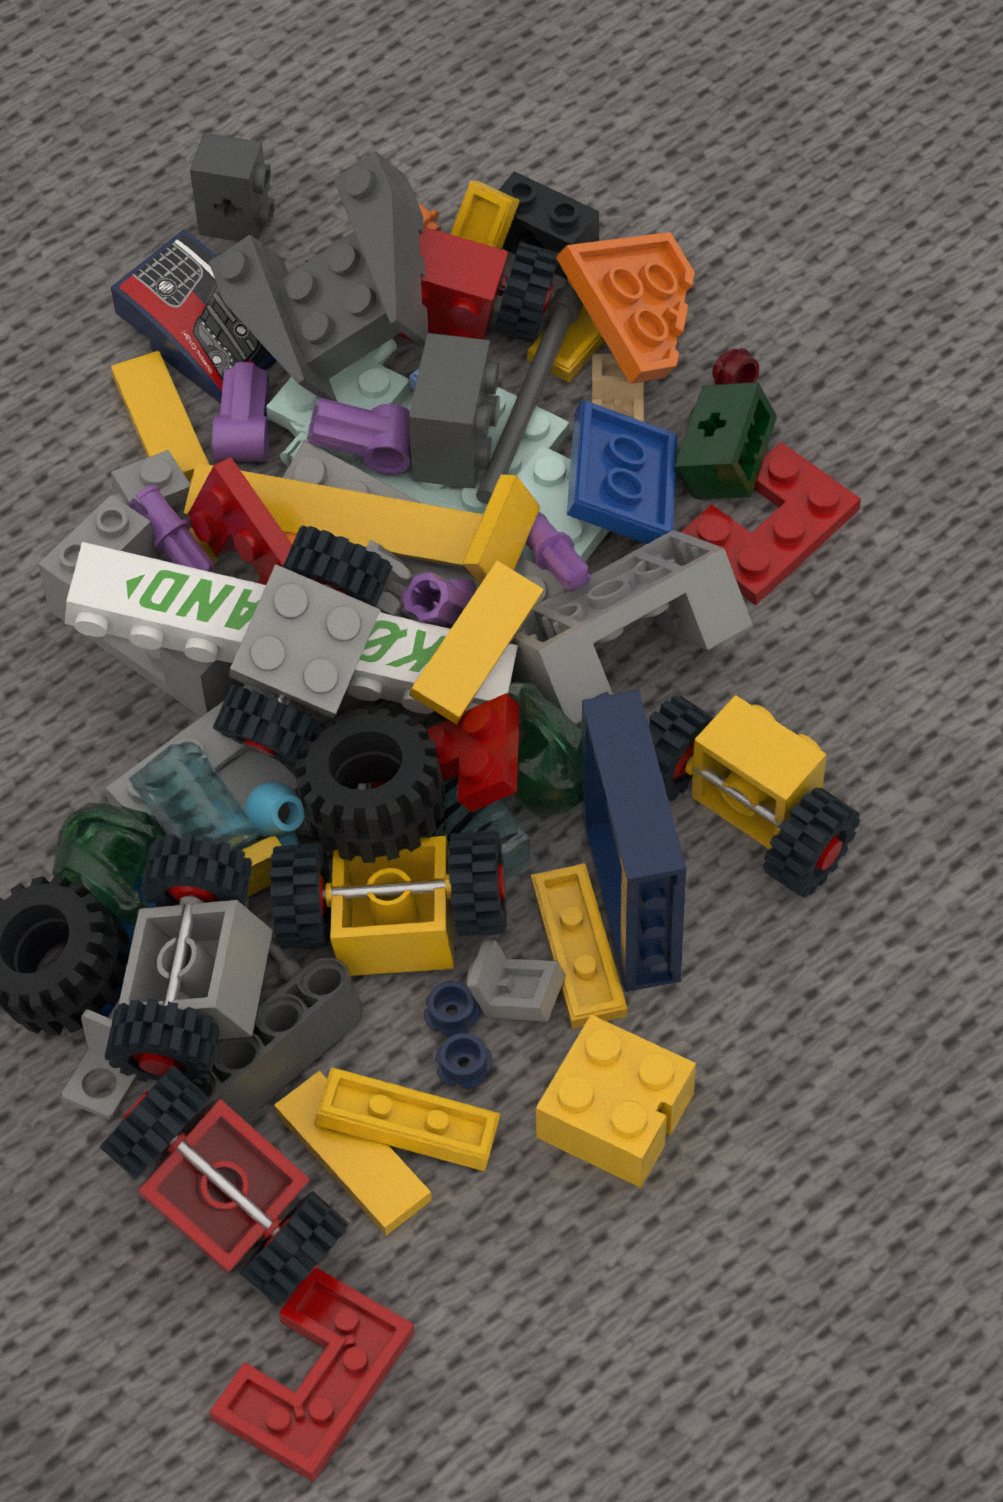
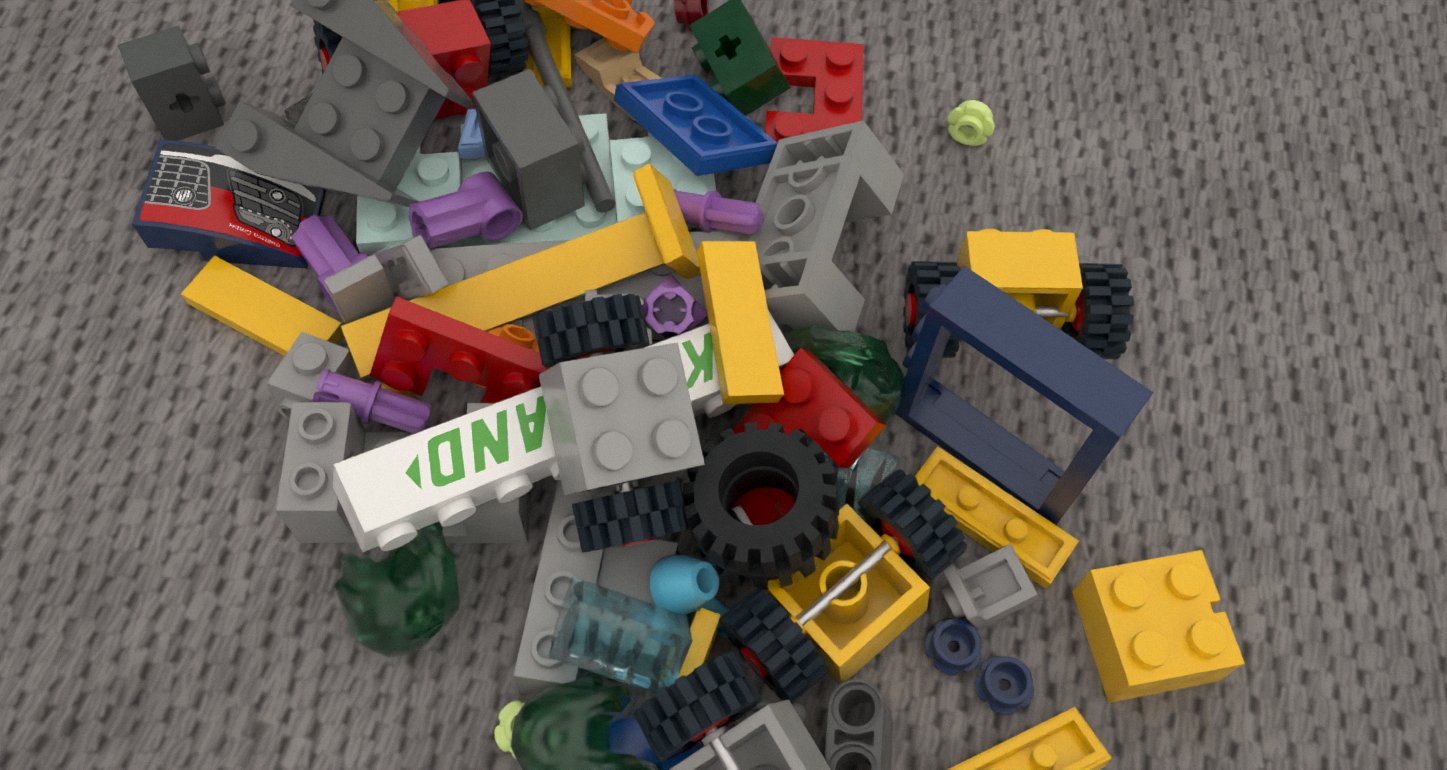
camera: 45 degrees left, 5 degrees up
(77, 691) = (401, 599): none -> clear green helmet
(232, 438) = (360, 290): none -> light grey tile
(278, 448) = (411, 268): none -> light grey plate
(886, 628) = (973, 114): none -> yellowish green plate

